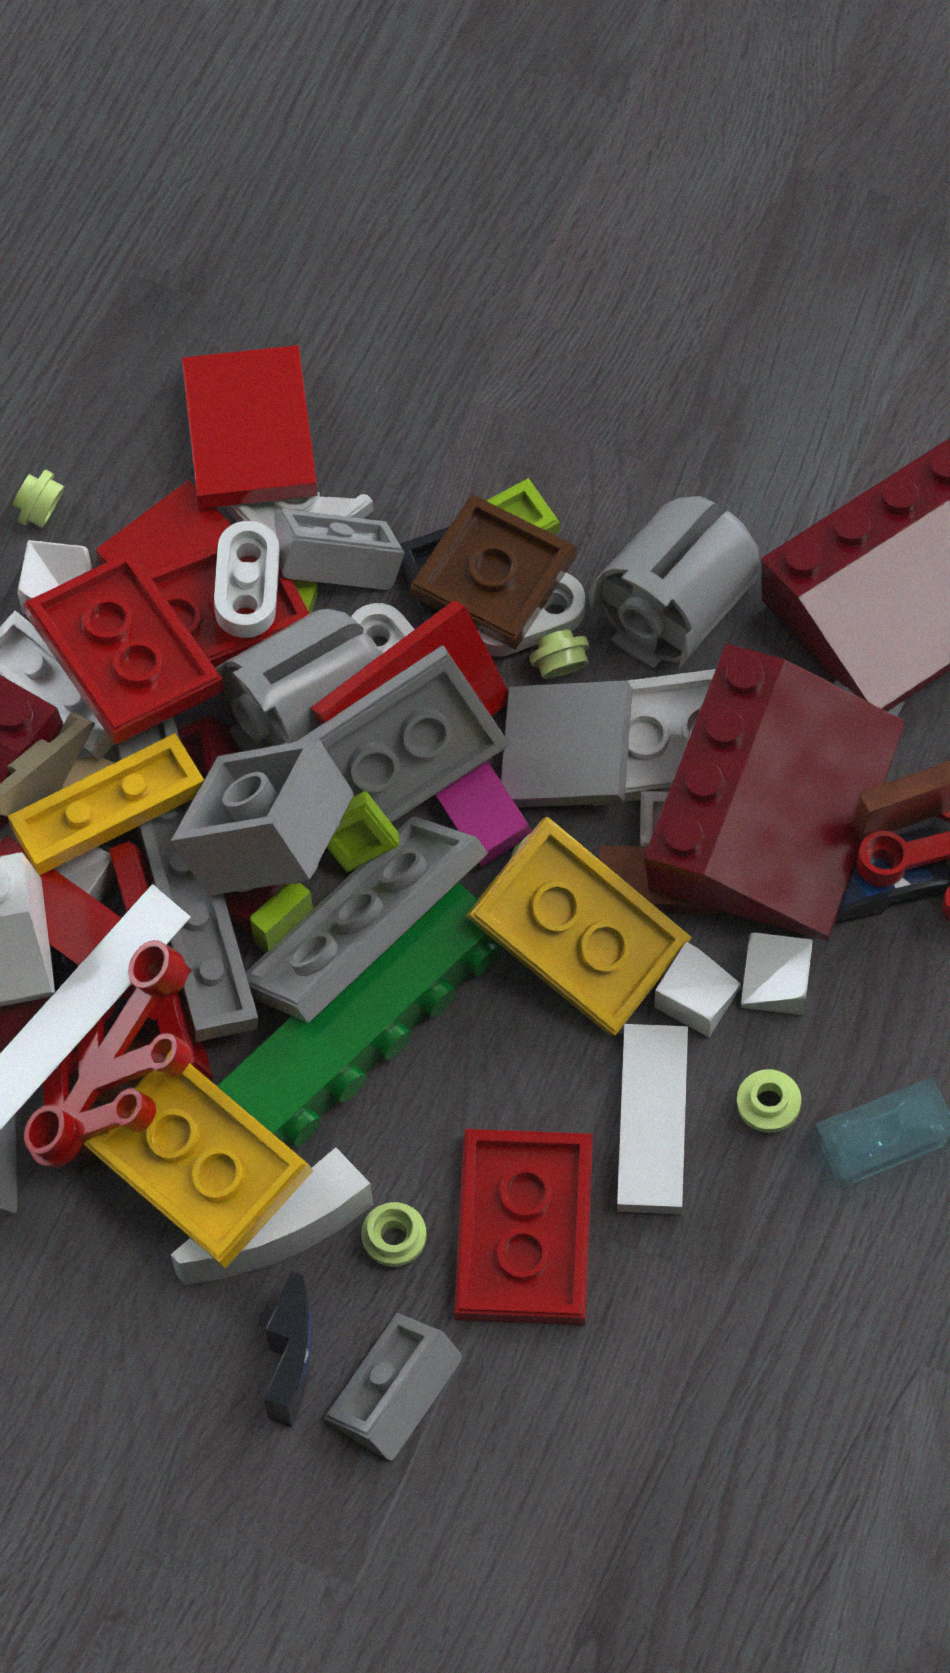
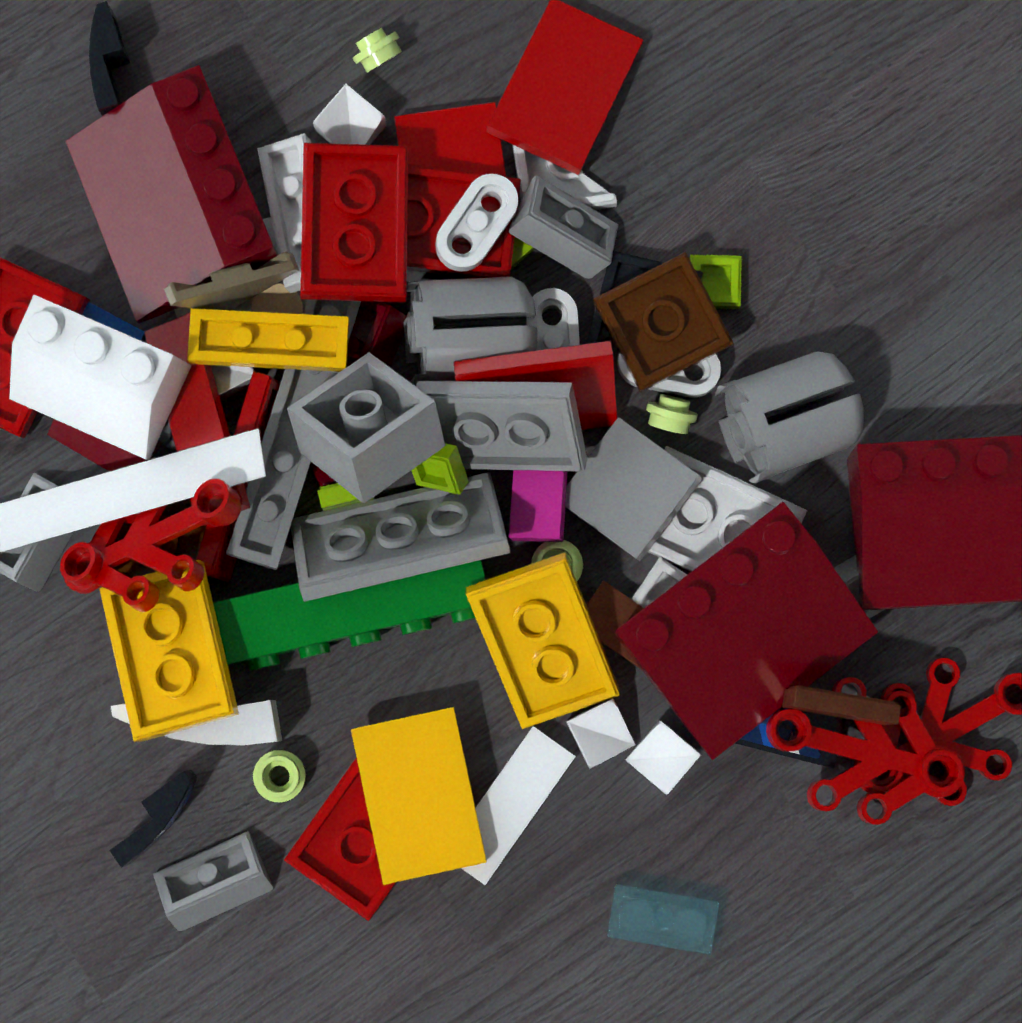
camera: 30 degrees right, 20 degrees up
(553, 1155) = (418, 795): none -> yellow tile
(767, 1118) = (584, 833): yellowish green plate -> none

